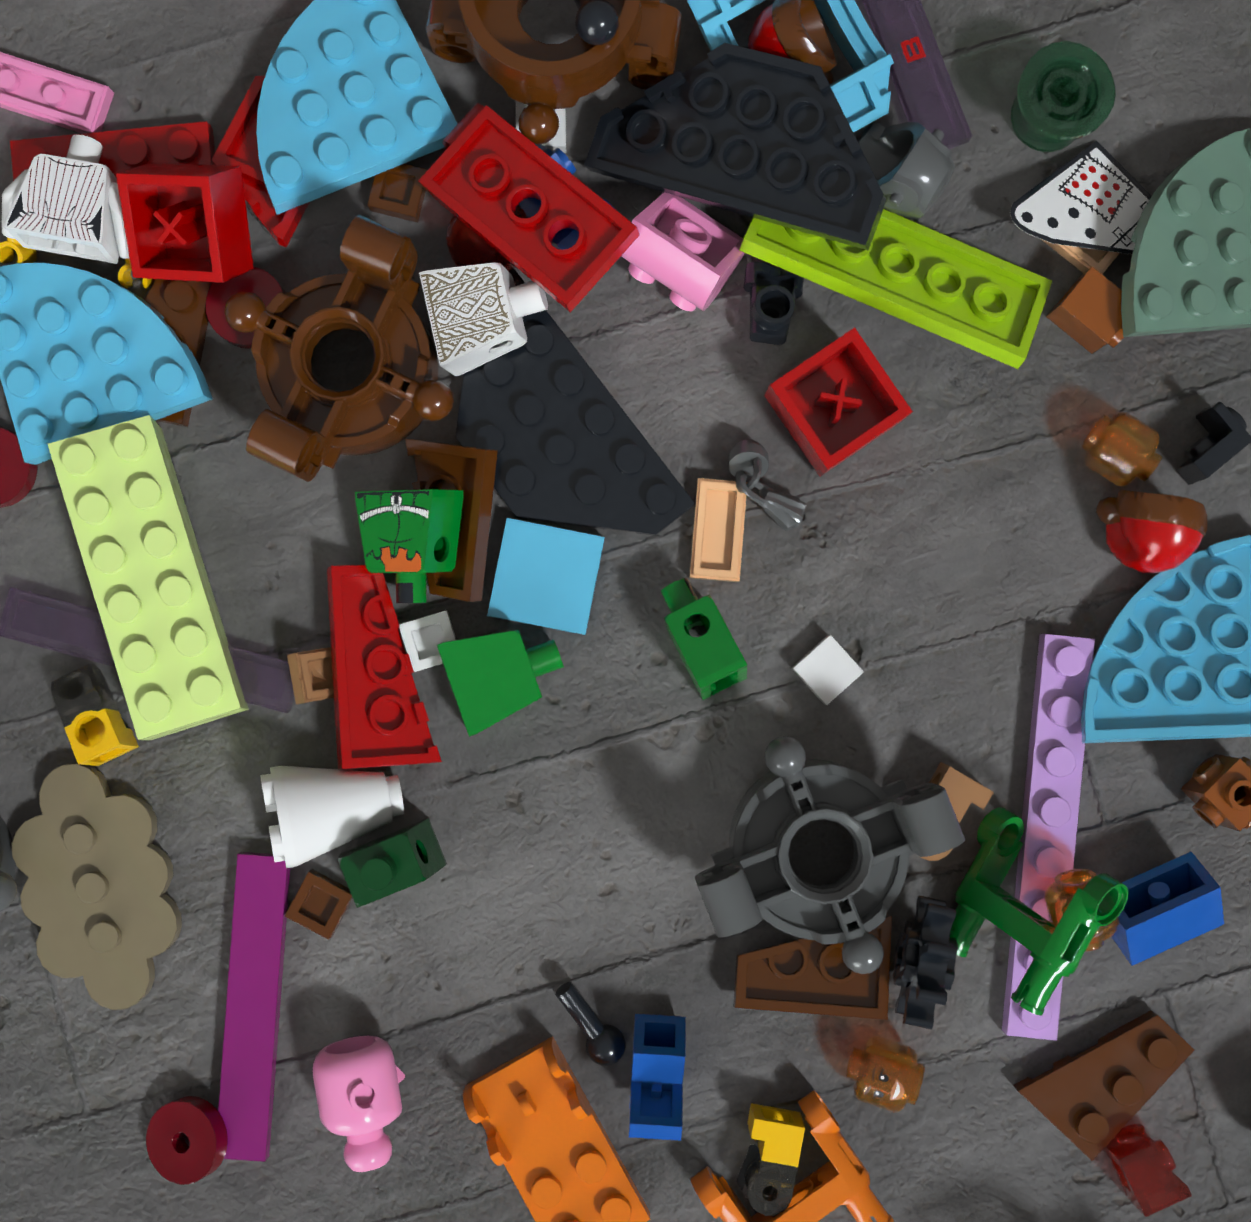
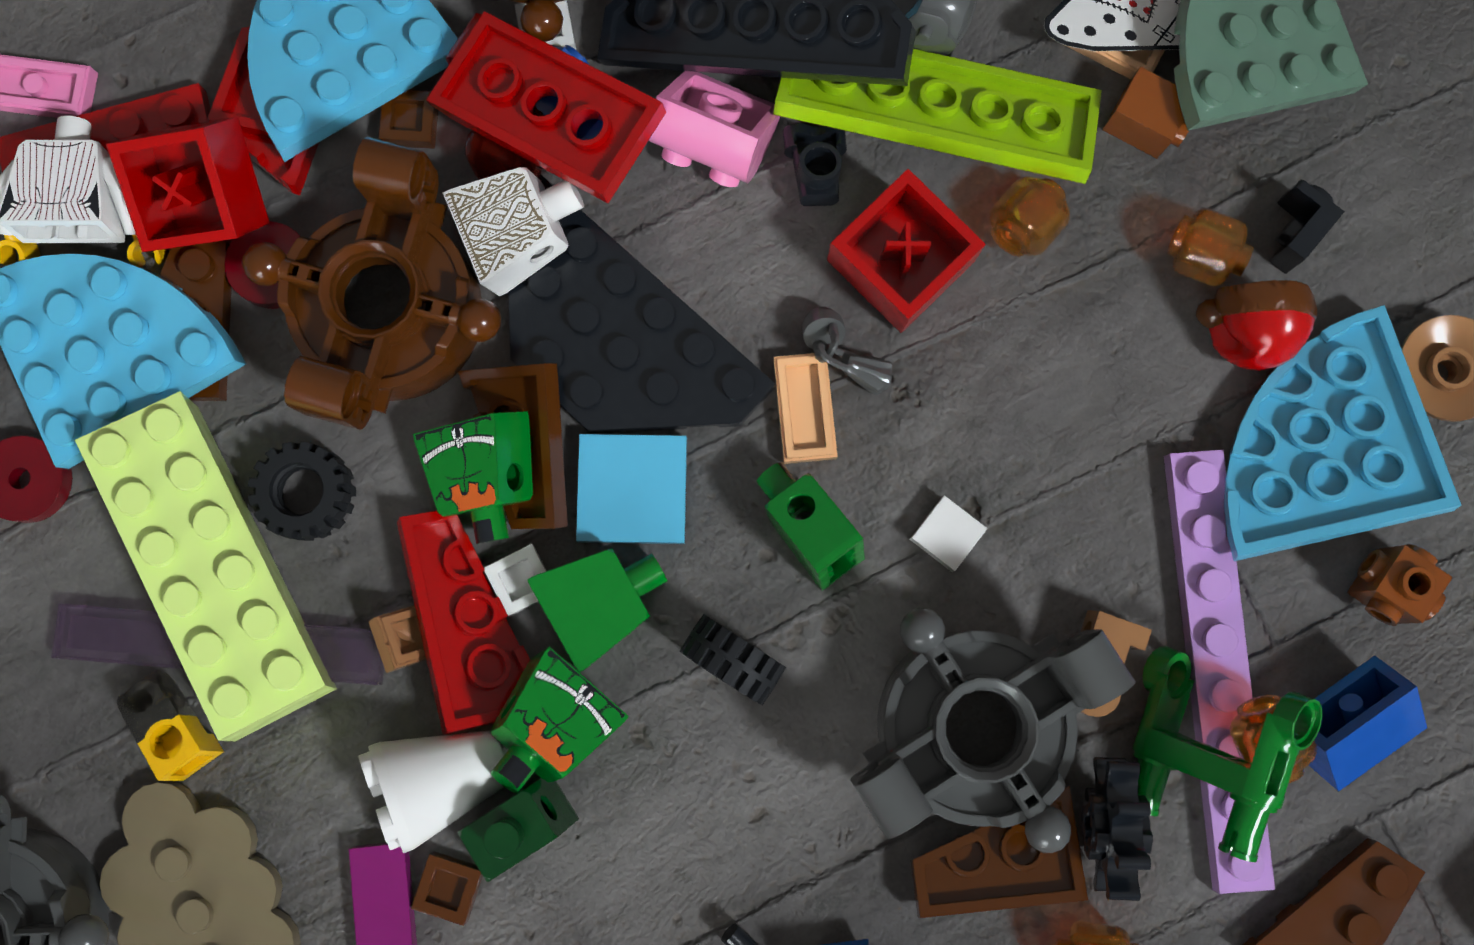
camera: 10 degrees left, 5 degrees down
(214, 523) = (272, 478): none -> black tyre
(437, 776) = (551, 722): none -> green torso
(609, 749) = (732, 659): none -> black tyre
(960, 389) = (1029, 216): none -> clear orange head

